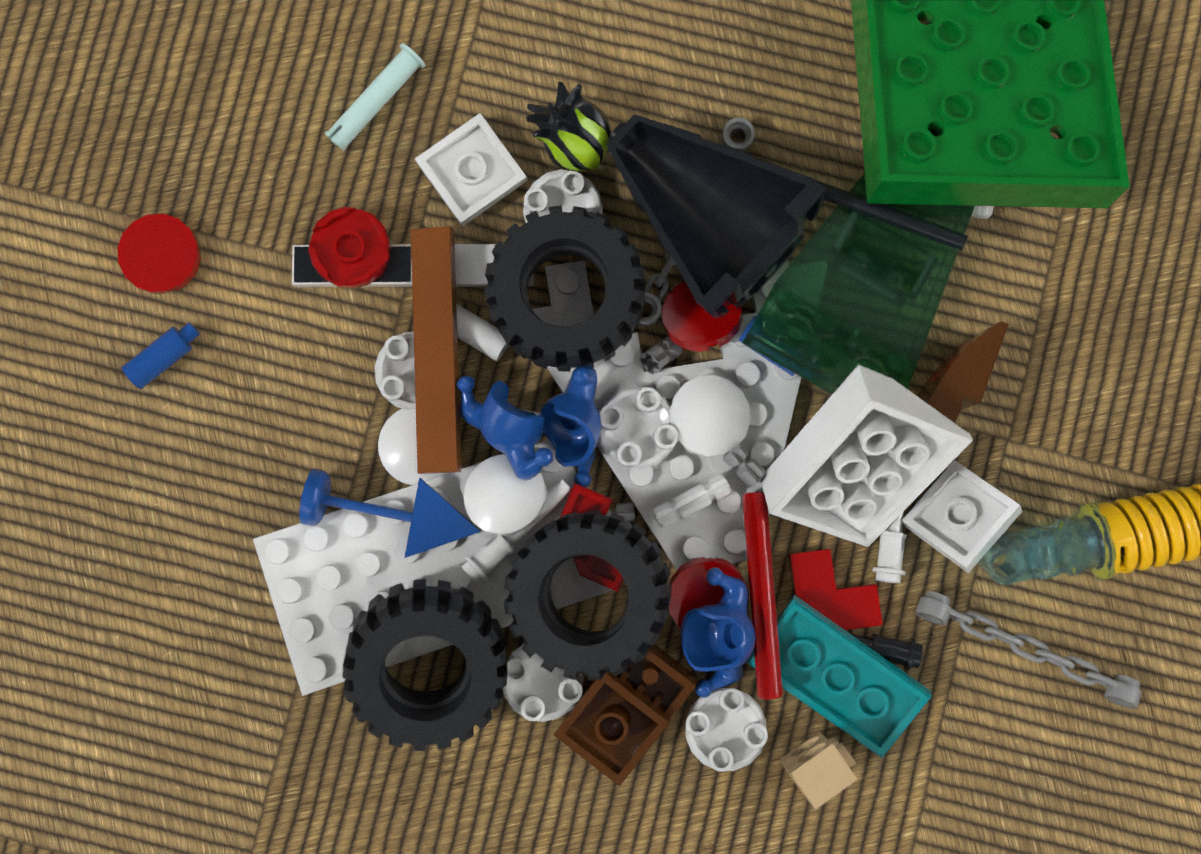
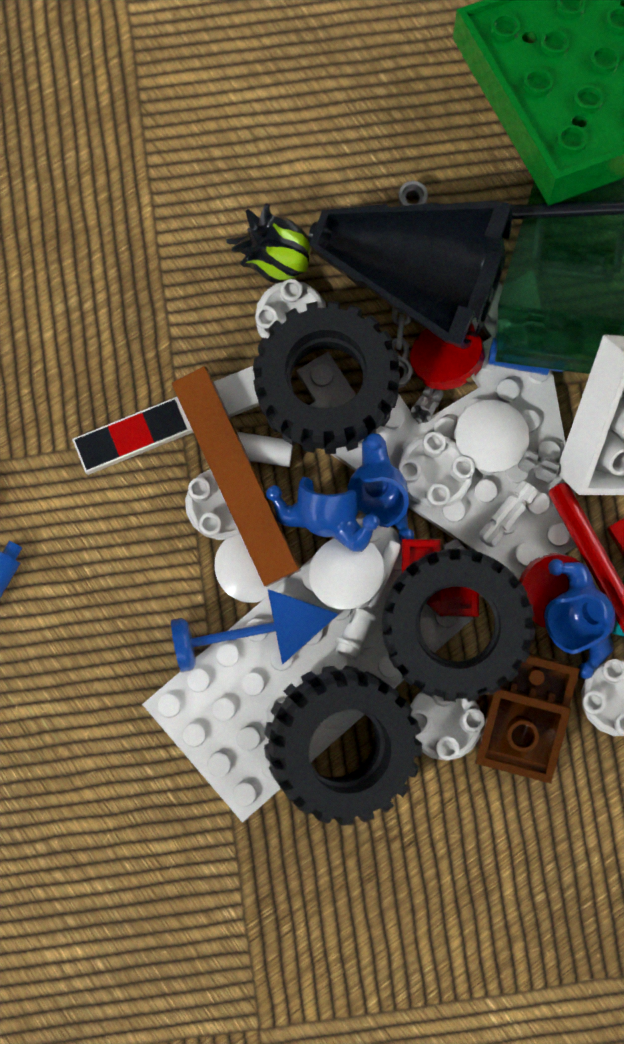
camera: 20 degrees left, 5 degrees down
(349, 247) = (123, 420): red tile -> none
(374, 97) = (91, 287): light aqua pin -> none
(471, 169) = (199, 314): white plate -> none

